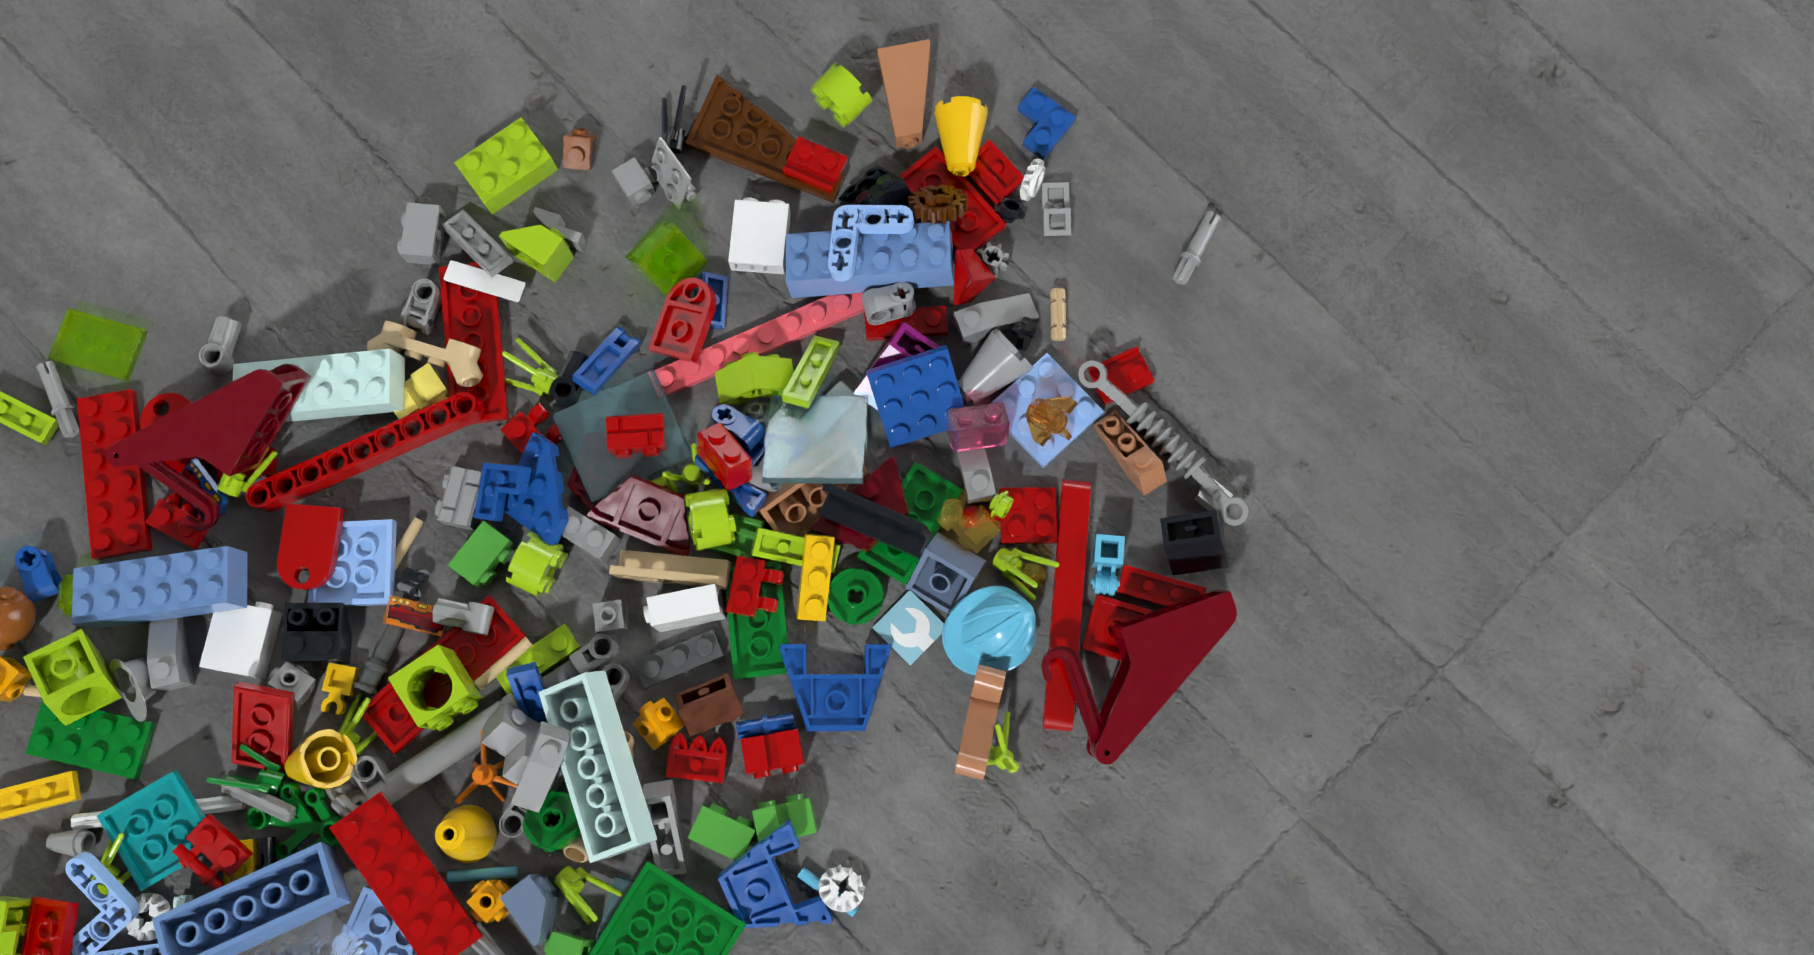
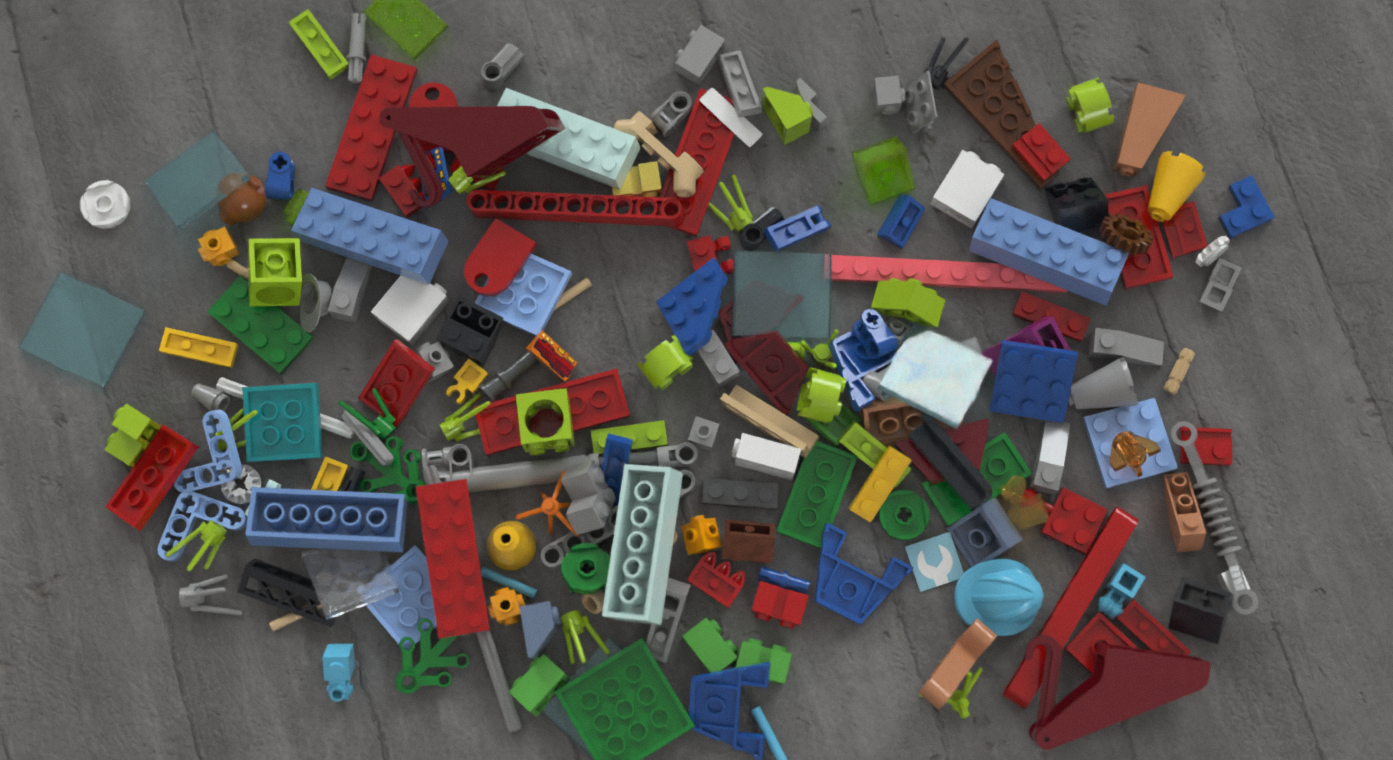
camera: 25 degrees right, 0 degrees up
(218, 846) = (322, 458): red plate -> none
(322, 760) = (431, 431): yellow cone -> none
(410, 582) = (560, 327): black piece -> none
(459, 498) = (631, 281): light grey brick -> none
(470, 617) = (597, 379): light grey piece -> none
(482, 554) = (626, 334): bright green brick -> none
(494, 485) = (663, 284): blue plate -> none
(503, 663) = (603, 427): tan piece -> none
(506, 165) = (792, 32): lime brick -> none
(541, 766) = (600, 523): light grey slope -> none
(578, 149) = (855, 46): bracket -> none
(636, 434) = (794, 299): red brick -> none
(684, 321) = (874, 227): red tile -> none
(724, 456) = (857, 352): red brick -> none
(746, 587) = (821, 465): red plate -> none
(811, 371) = (956, 318): lime plate -> none
(829, 890) = (771, 735): white gear -> none
(858, 225) = (1054, 220): light blue beam -> none
(886, 304) = (1044, 294): light grey piece -> none
(970, 276) = (1123, 305): red slope -> none
(978, 427) = (1069, 430): clear pink brick -> none
(989, 253) = (1145, 294): light grey gear -> none
(1001, 505) = (1057, 501): lime plate -> none
(1010, 210) = (1182, 266): black plate -> none
(1010, 564) = (1040, 553): lime plant -> none
(1025, 332) = (1145, 372): black piece -> none
(1035, 572) = (1054, 570): clear yellow plate -> none
(1194, 251) = (1320, 373): light grey axle -> none

